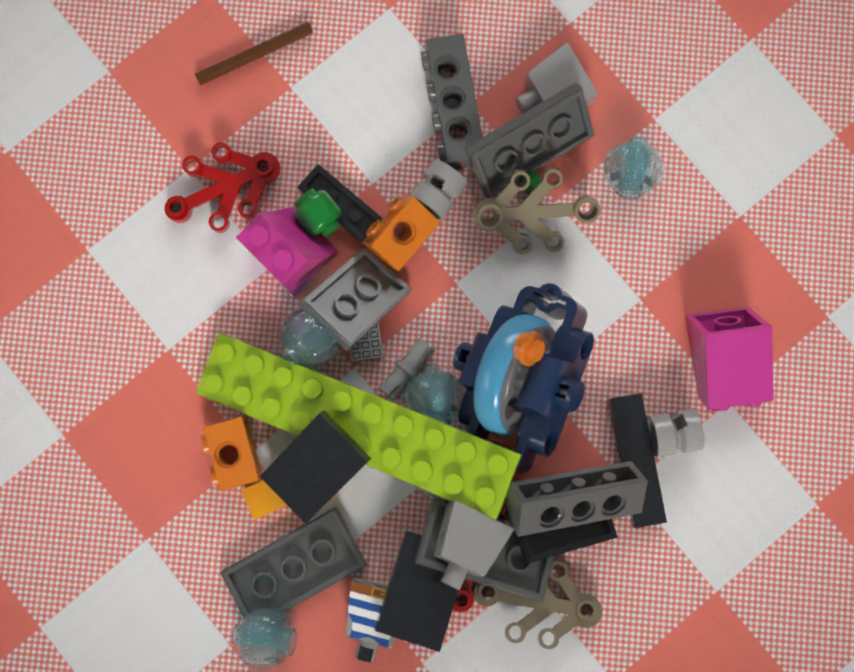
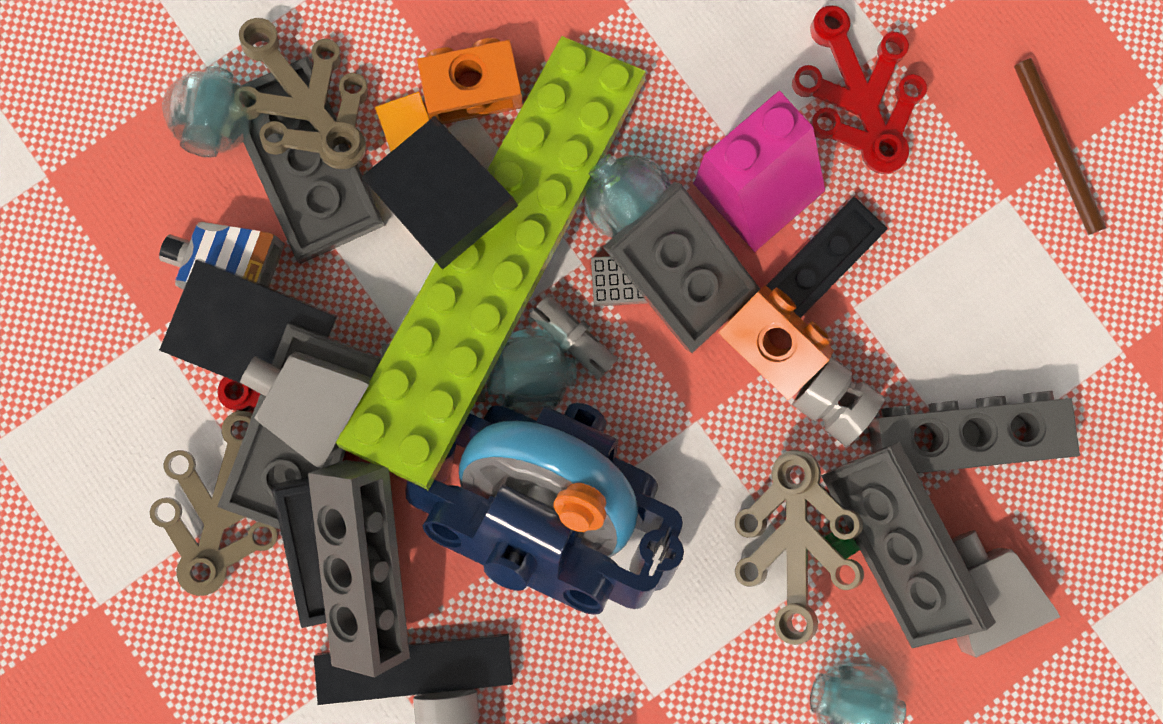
camera: 90 degrees right, 0 degrees up
(253, 569) = (303, 101): none -> dark tan plant
(317, 213) = (812, 220): green head -> none

